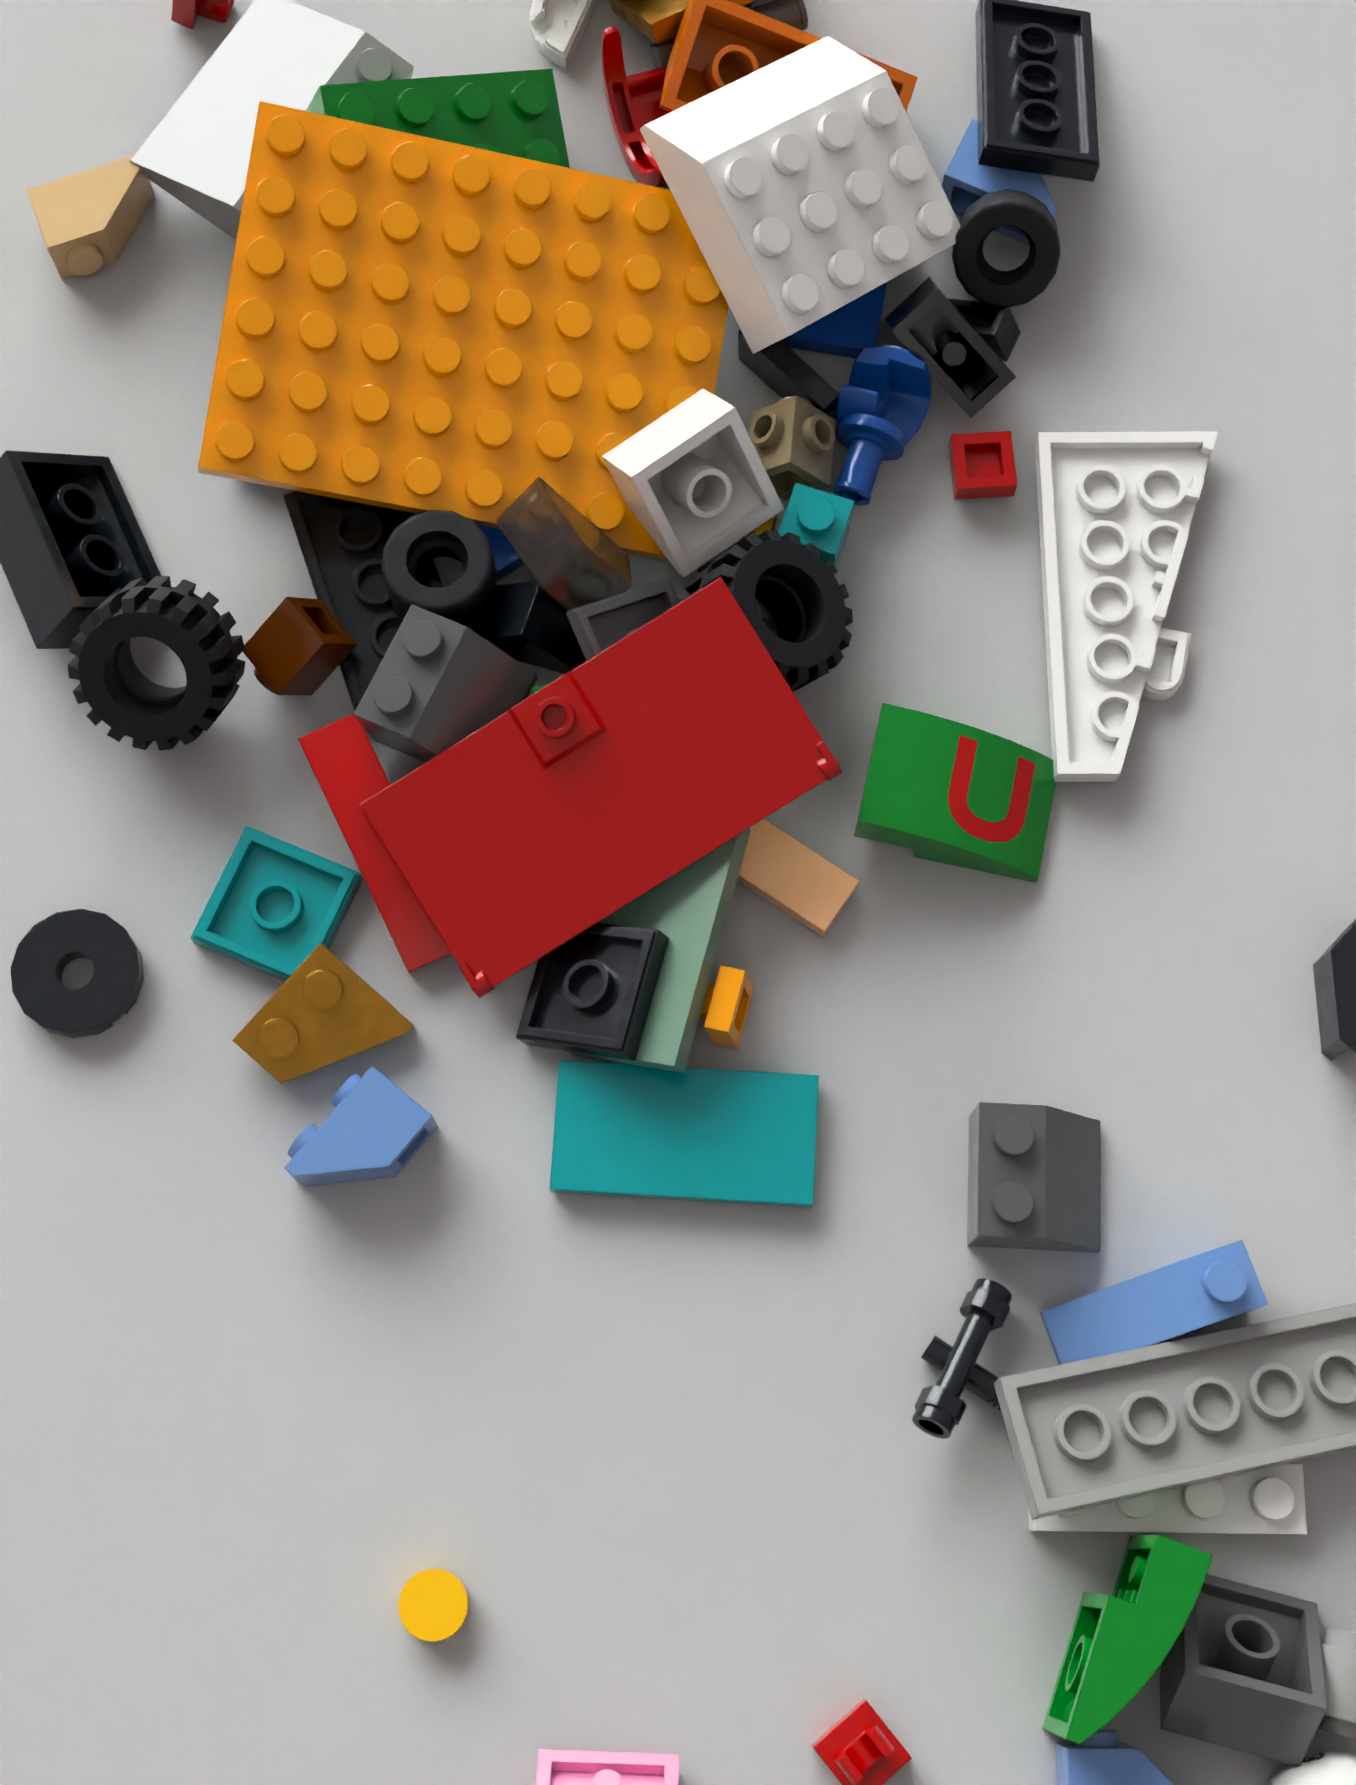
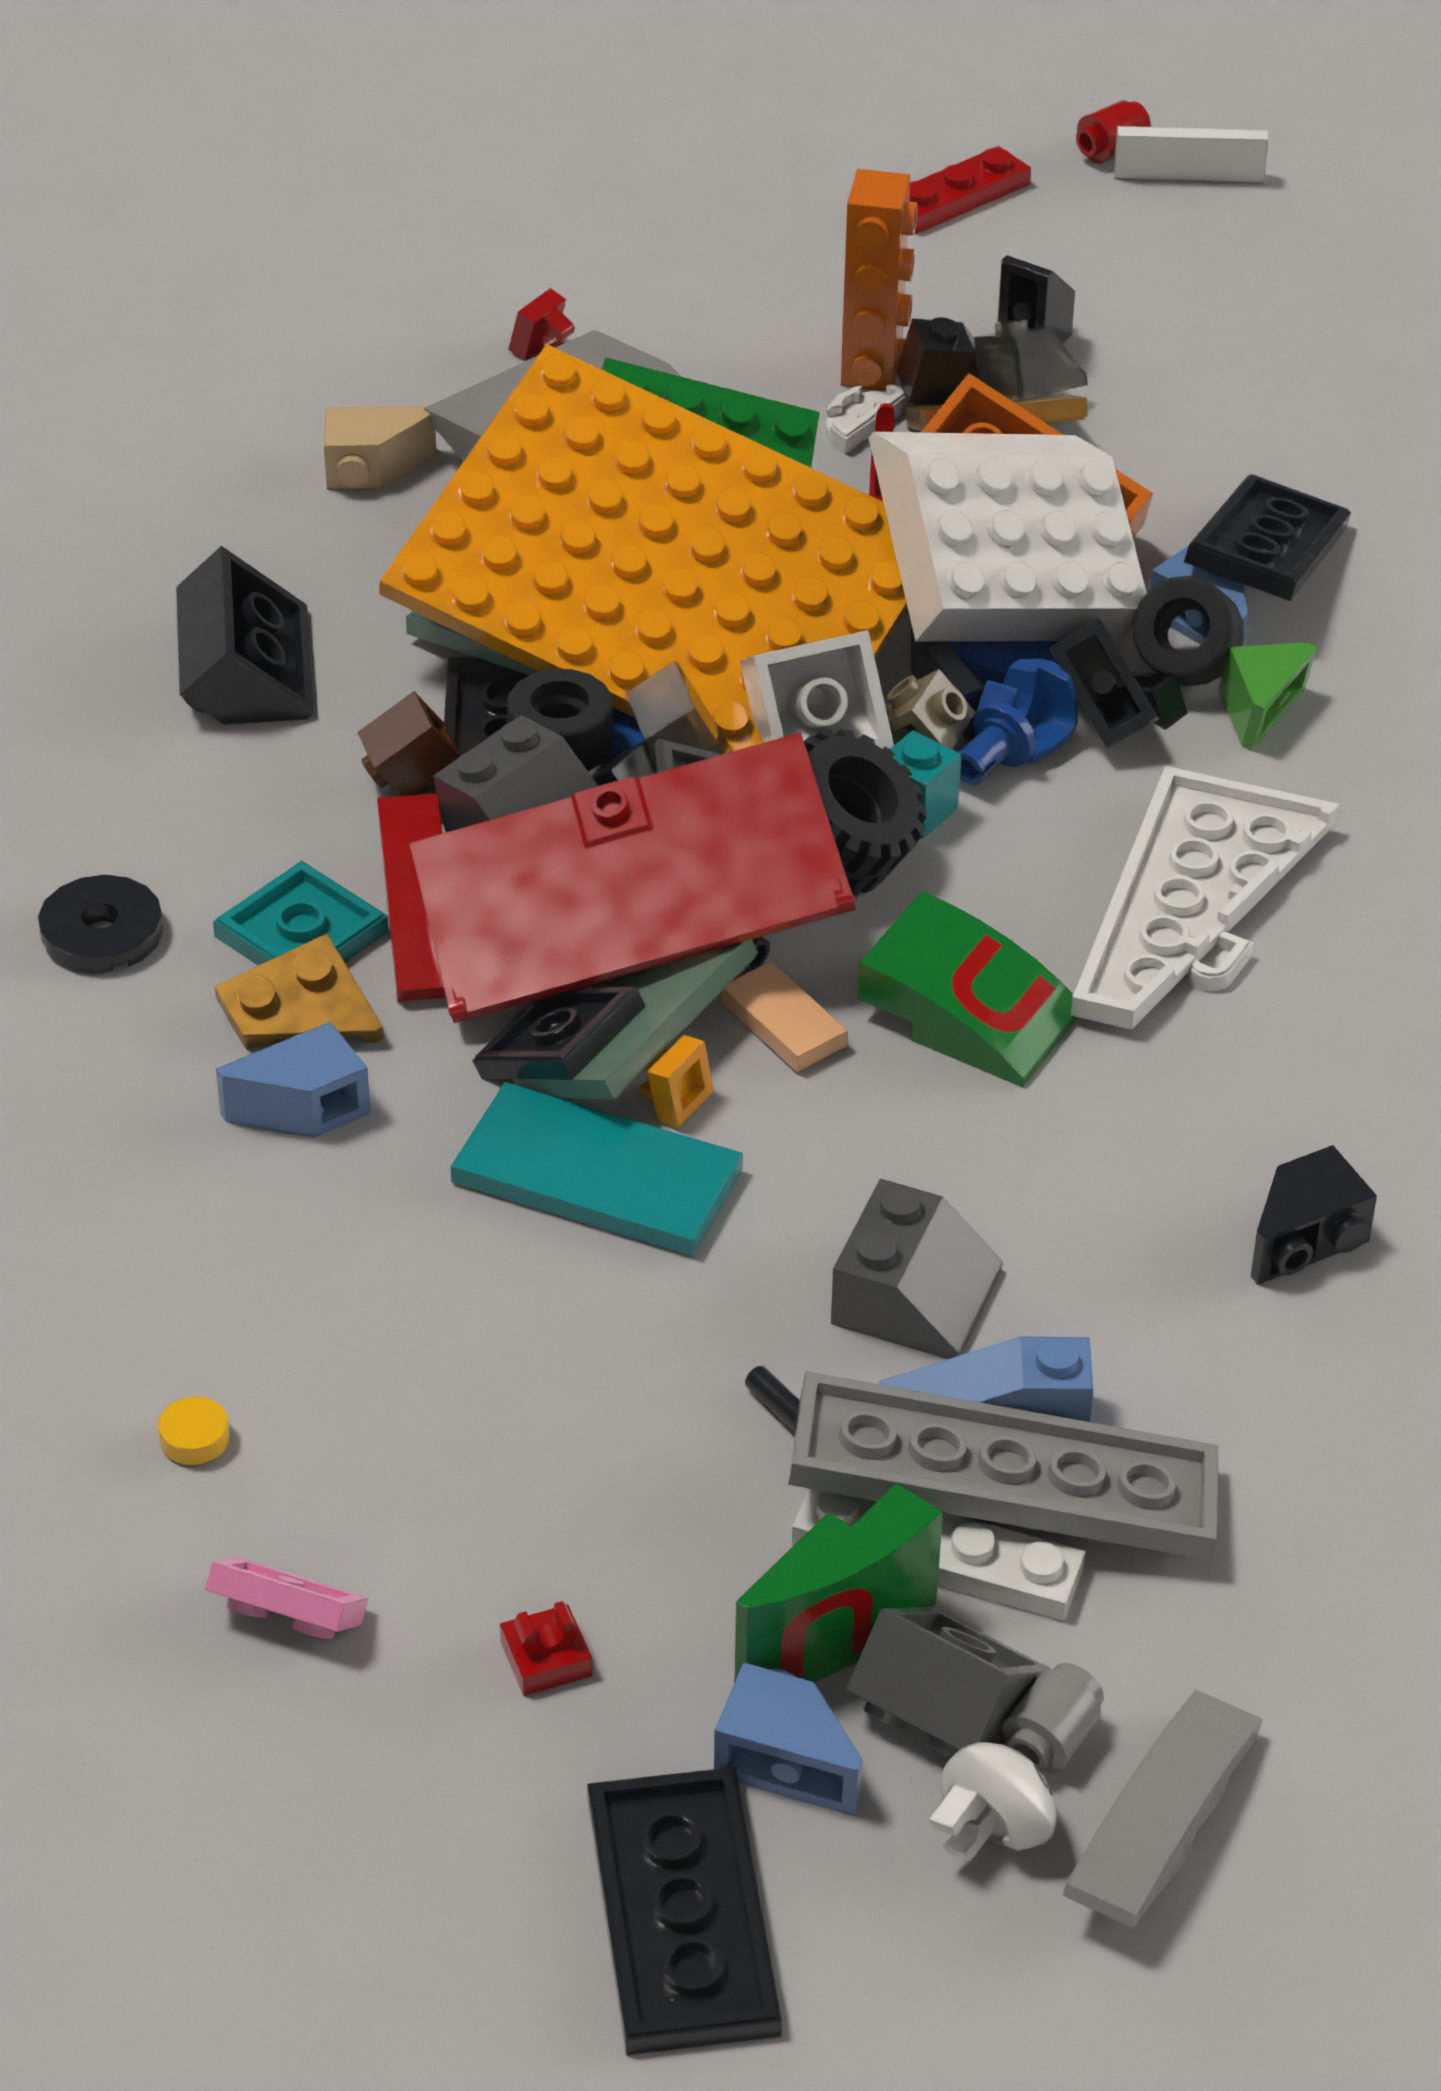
camera: 20 degrees right, 30 degrees down
(129, 699) = (243, 688): black tyre -> none
(940, 1404) = (745, 1392): black bar -> none
(982, 465) = (1103, 781): red plate -> none
(1090, 294) = (1262, 685): none -> bright green slope

